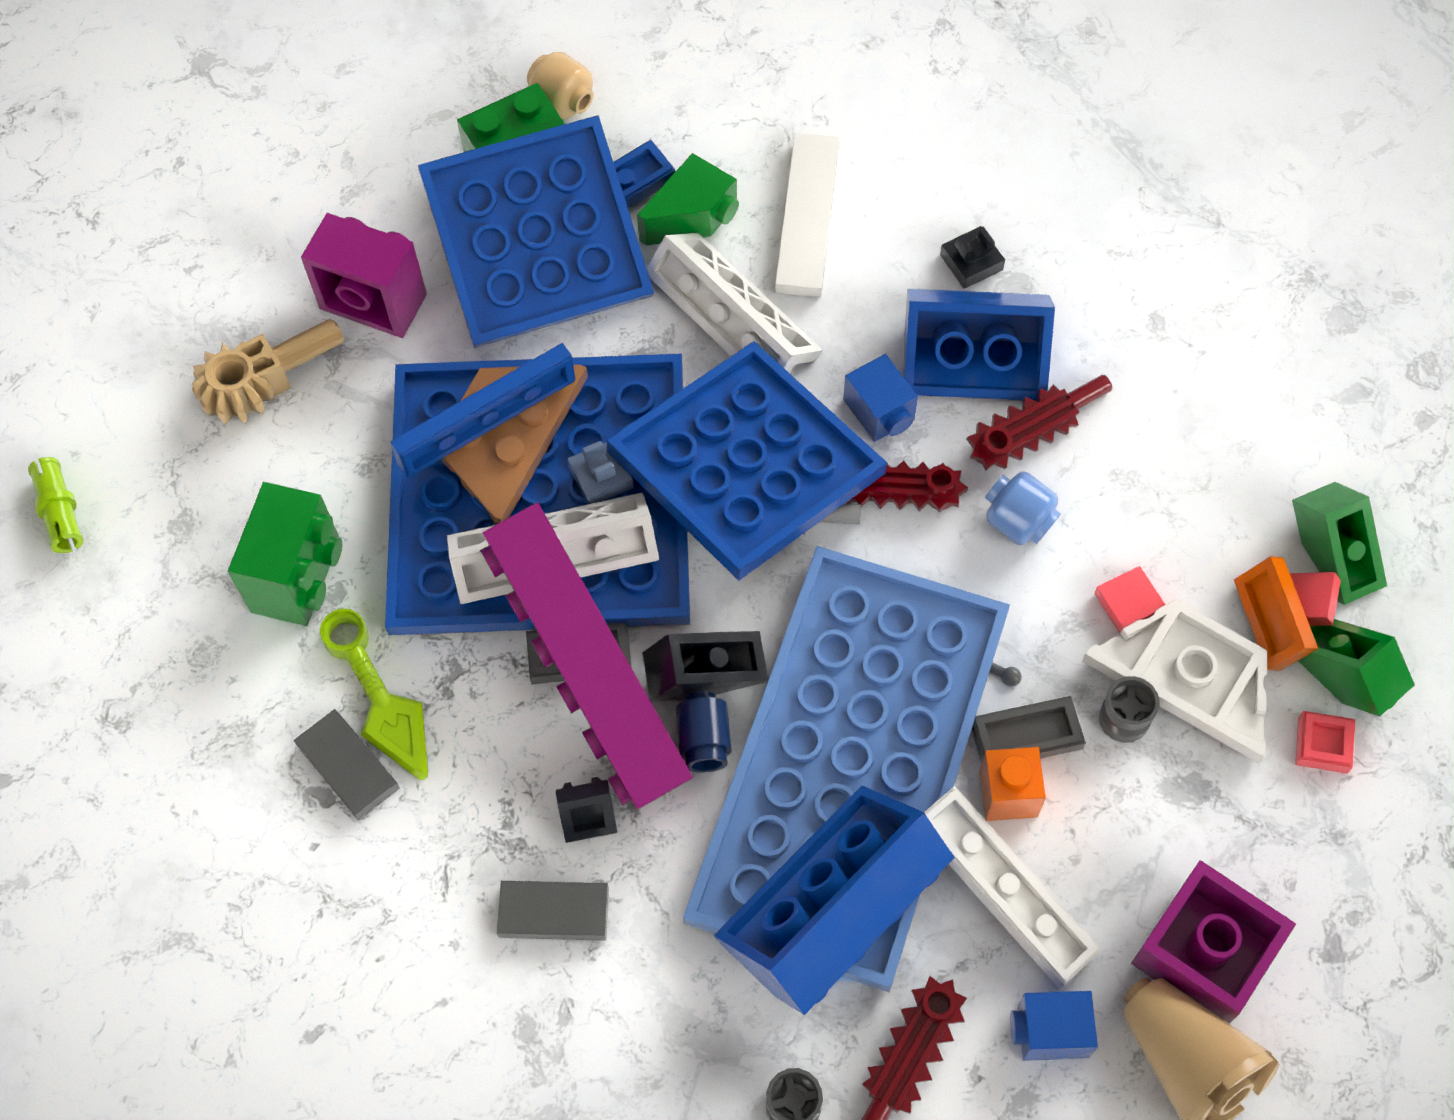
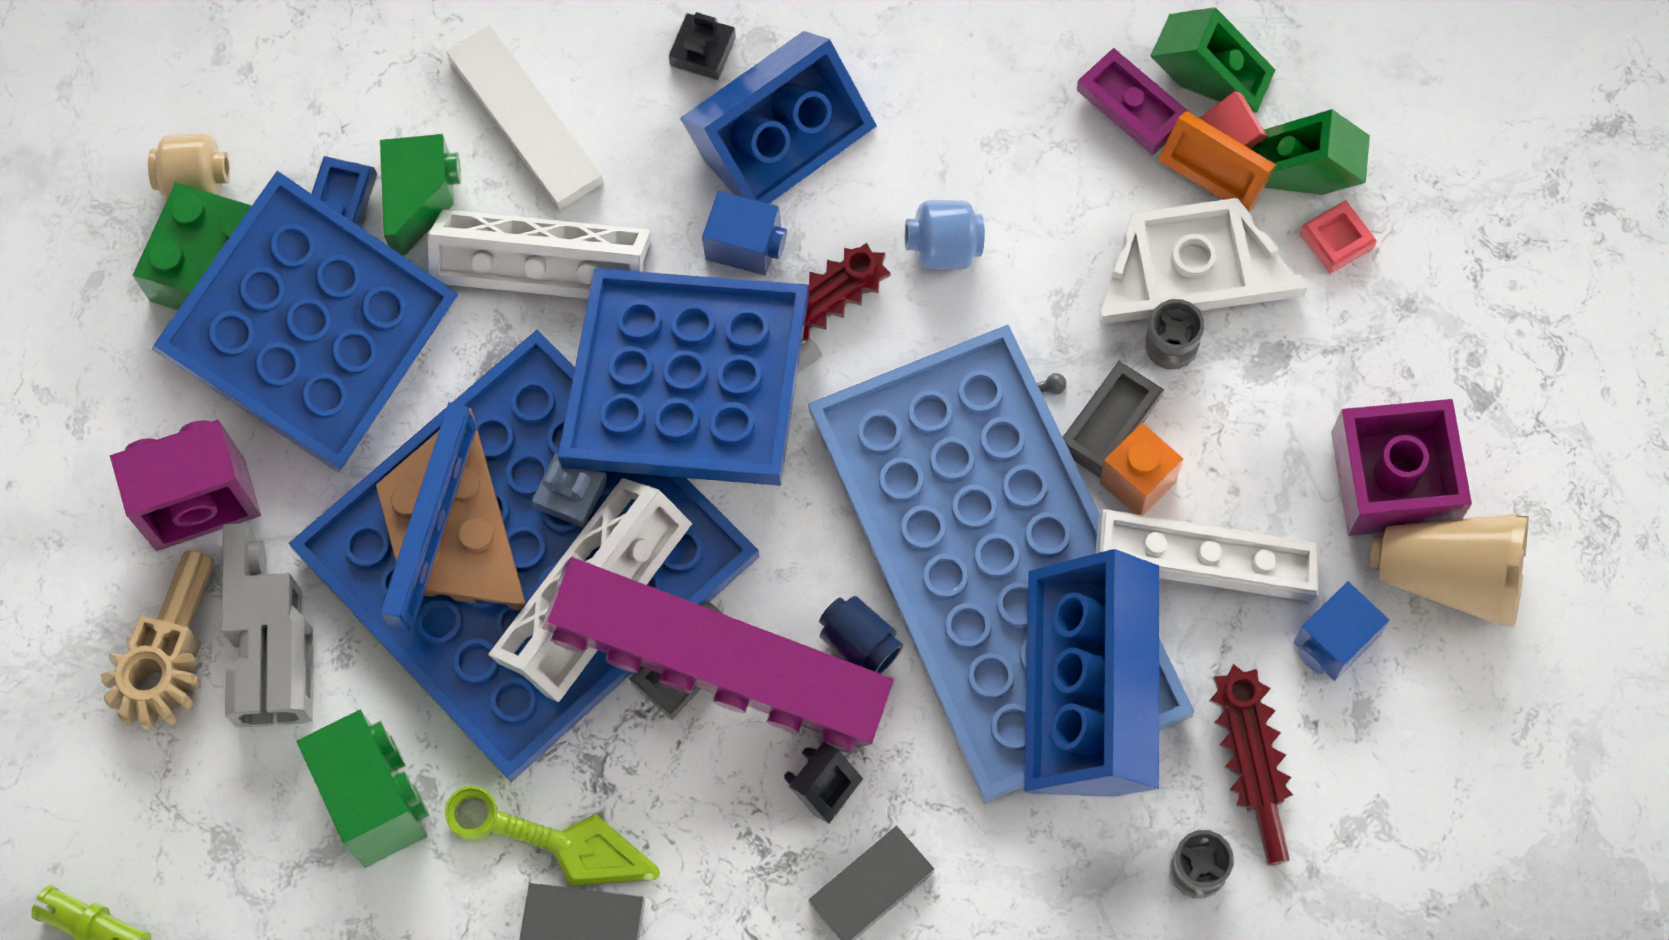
camera: 40 degrees left, 5 degrees up
(332, 413) = (272, 636): none -> light grey plate
(703, 662) = (810, 580): black slope -> none
(1037, 420) = (886, 152): dark red piece -> none
(1129, 598) = (1093, 242): coral tile -> none
(1250, 520) = (1131, 100): none -> magenta plate

